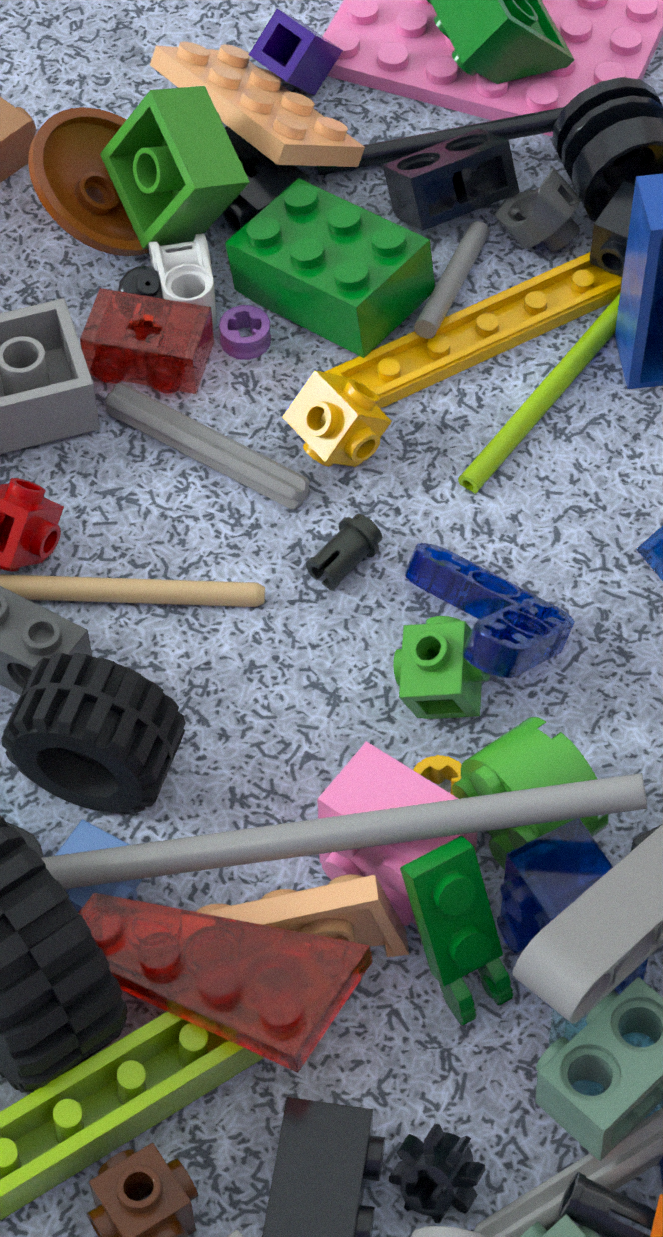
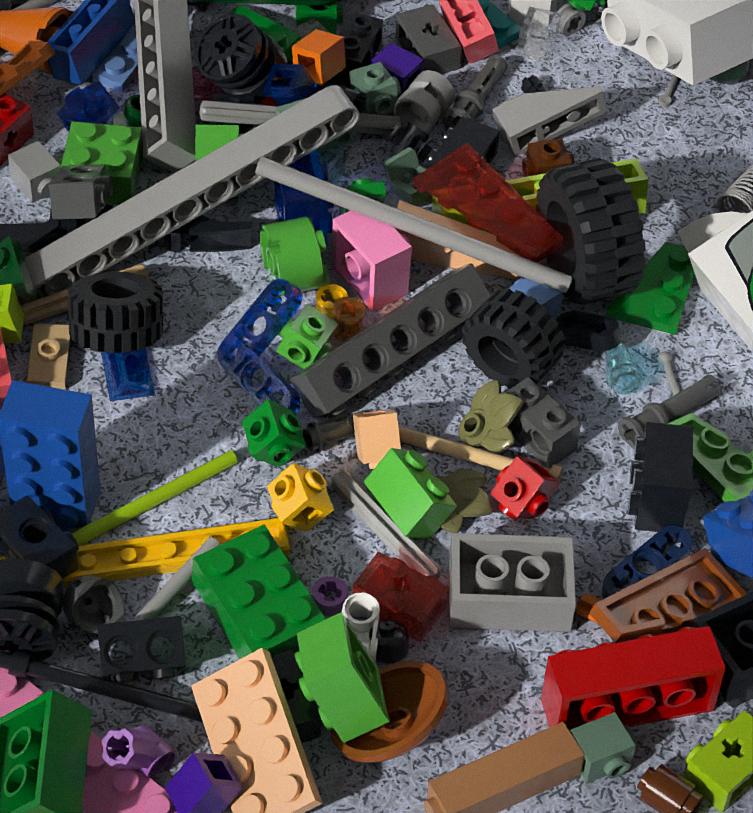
camera: 165 degrees left, 5 degrees down
(107, 616) = (491, 415): none -> olive plate
(112, 514) = (467, 493): none -> olive plate
(180, 465) = (410, 493): none -> bright green brick
(263, 539) = (375, 435): none -> light nougat brick
(304, 702) = (317, 381): none -> dark grey brick
(386, 730) = (349, 316): none -> clear orange bush
(387, 82) = (138, 750): none -> medium lavender piece
(398, 1086) = (400, 174): none -> sand green bracket
(418, 498) = (273, 433): none -> green brick

